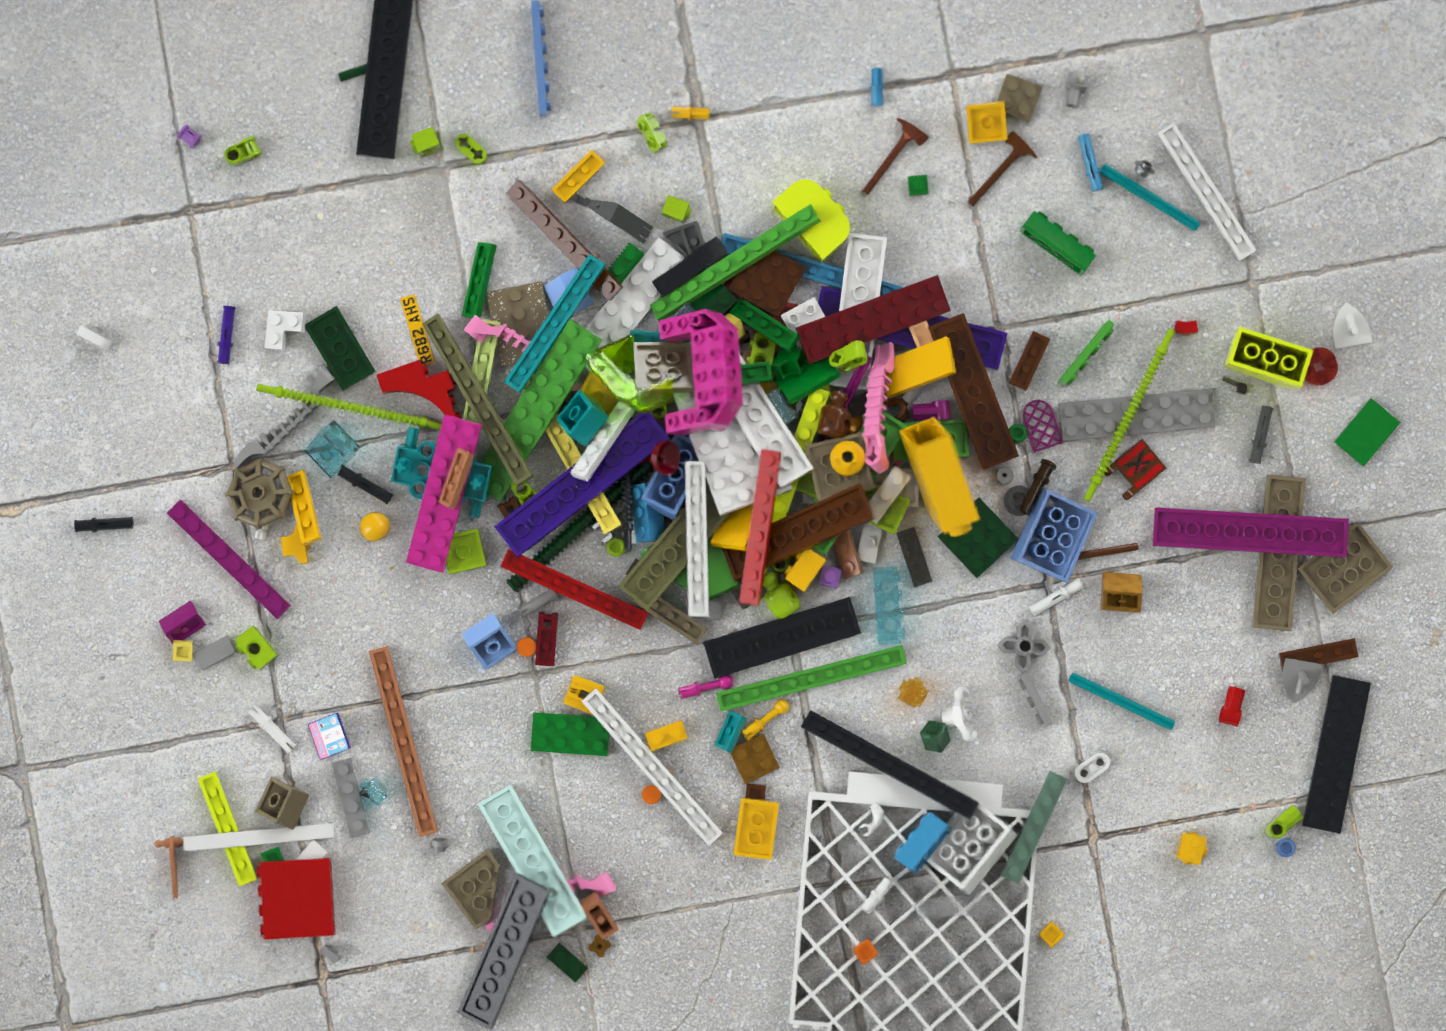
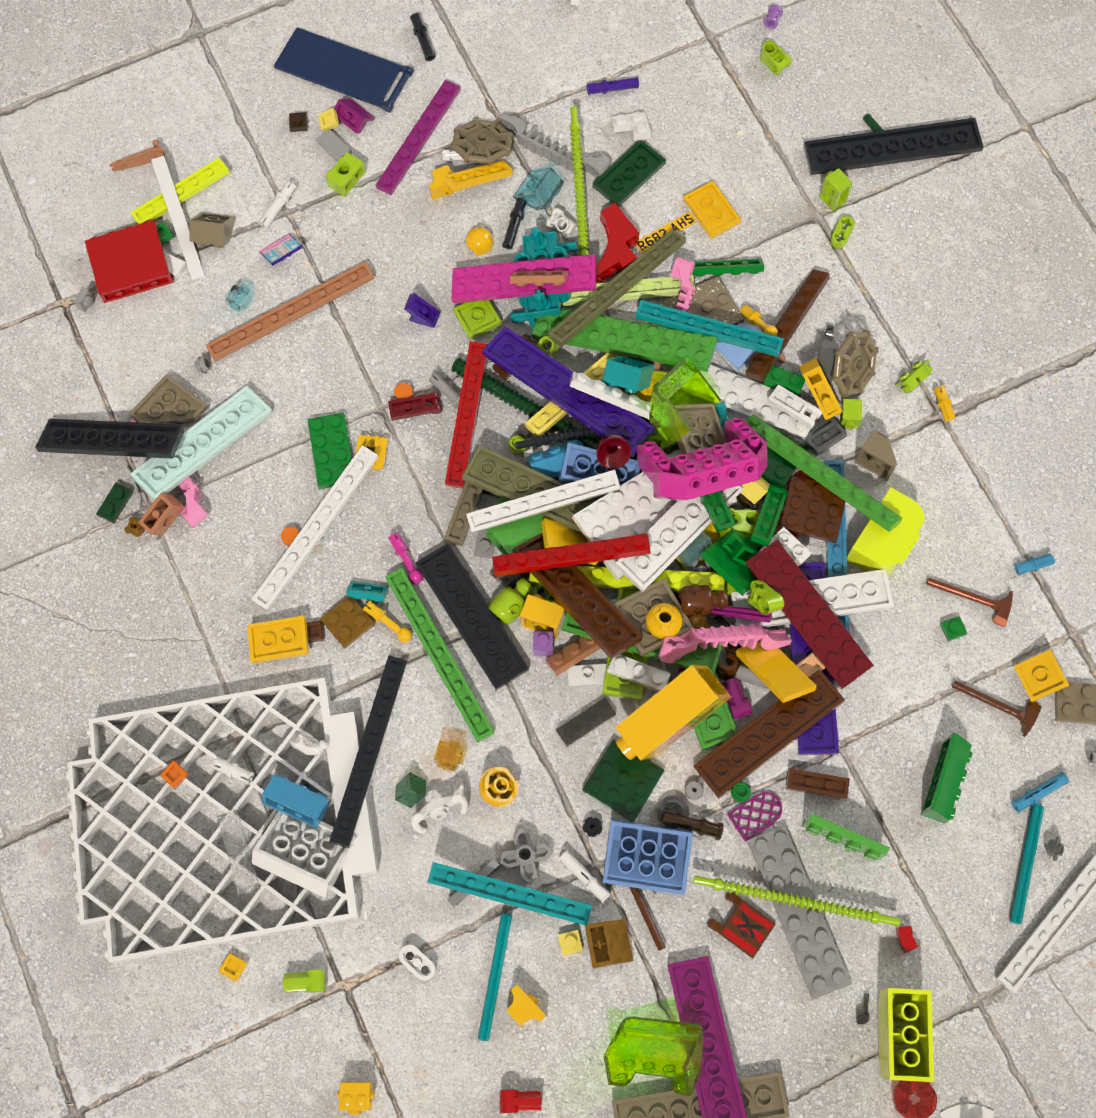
camera: 80 degrees right, 15 degrees down
(116, 622) = (342, 68): none -> dark blue flag
(173, 684) = (298, 122): none -> dark brown plate
(350, 797) = (220, 287): light grey plate -> none
(377, 438) = (559, 221): none -> white plate
(405, 274) = (712, 209): none -> yellow tile
(443, 606) = (421, 311): none -> dark purple slope
(489, 641) = (399, 357): light blue slope -> none
(540, 50) = (945, 264): medium blue plate -> none
(572, 263) = (754, 318): none -> yellow pin
(578, 176) = (847, 322): yellow plate -> none
(630, 190) = (854, 363): none -> dark tan plate
(647, 233) = (820, 388): none -> yellow slope
(655, 263) = (794, 406): none -> white plate
(666, 735) = (349, 533): yellow brick -> none
(689, 266) = (802, 435): black slope -> none
(729, 200) = (877, 456): none -> dark tan slope
(881, 575) = (536, 698): clear light blue brick -> none
(956, 654) = (498, 787): none -> yellow cone
(1013, 583) = (587, 826): none -> black plate
(1034, 827) = (338, 914): sand green plate -> none
(1055, 669) = (509, 893): none -> teal plate
(1083, 866) = (305, 981): none -> lime piece
(1110, 626) = (570, 942): none -> light yellow plate
(1155, 681) = (524, 1007): none -> yellow brick
(1222, 576) = (655, 1049): none -> clear neon green windscreen
(1255, 457) = (824, 1053): dark grey pin -> none

